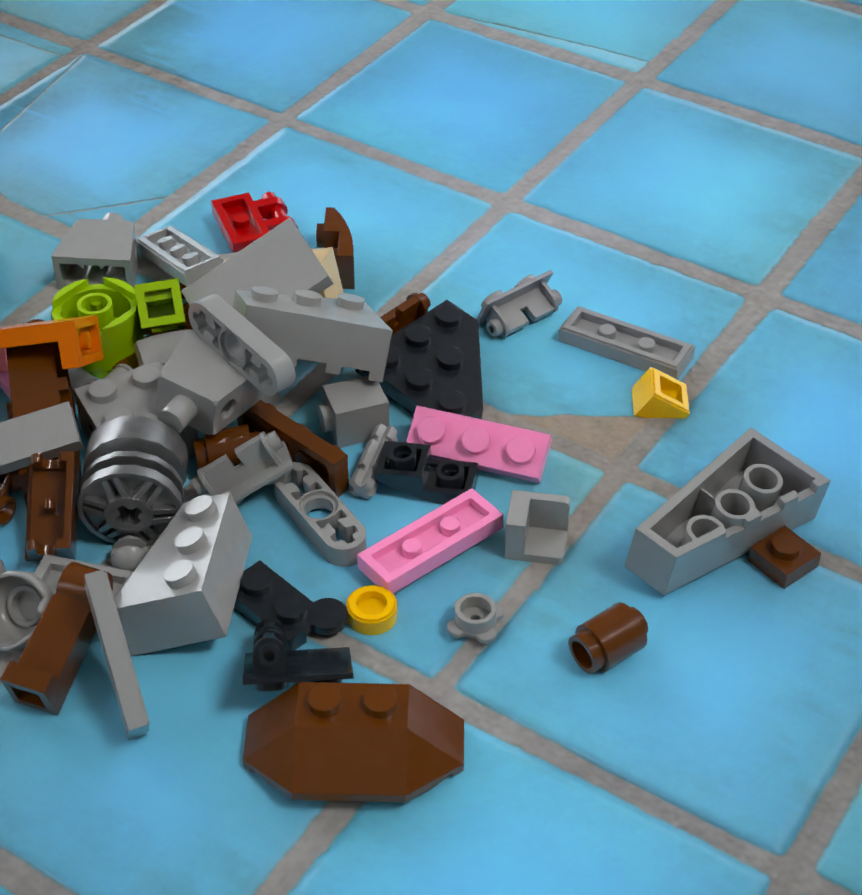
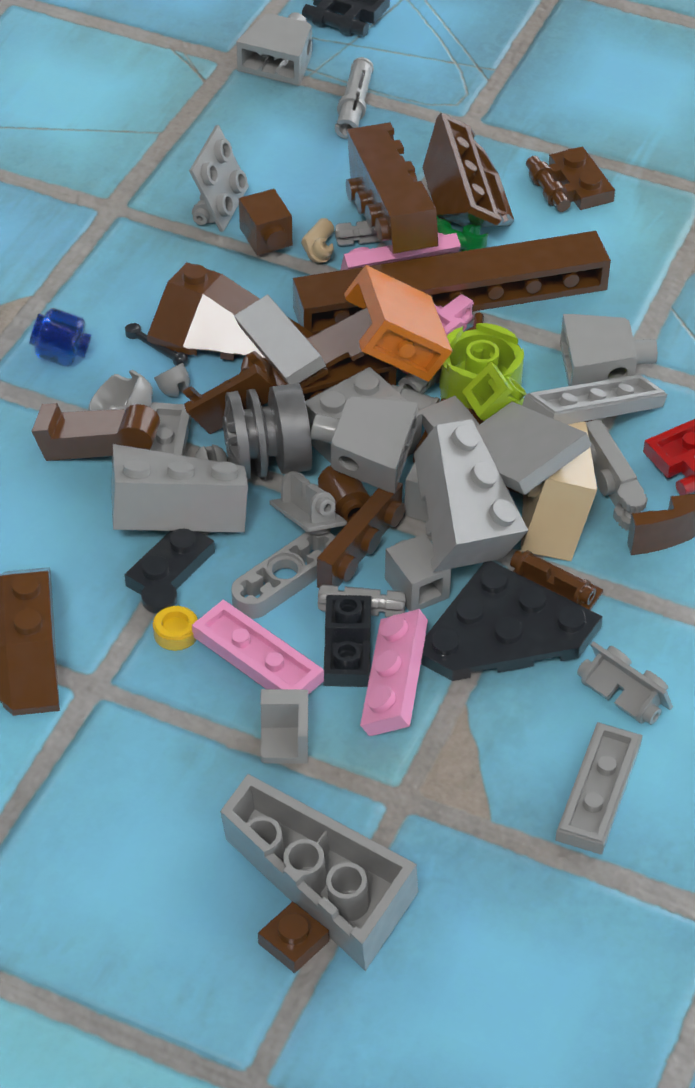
camera: 80 degrees right, 5 degrees up
(116, 654) = (65, 458): light grey tile -> none
(242, 345) = (393, 437): light grey beam -> none
(273, 666) = (89, 573): black hinge -> none
(475, 618) = (167, 688): light grey plate -> none
(608, 638) = (152, 791): reddish brown brick -> none
(659, 396) = (517, 824): yellow slope -> none

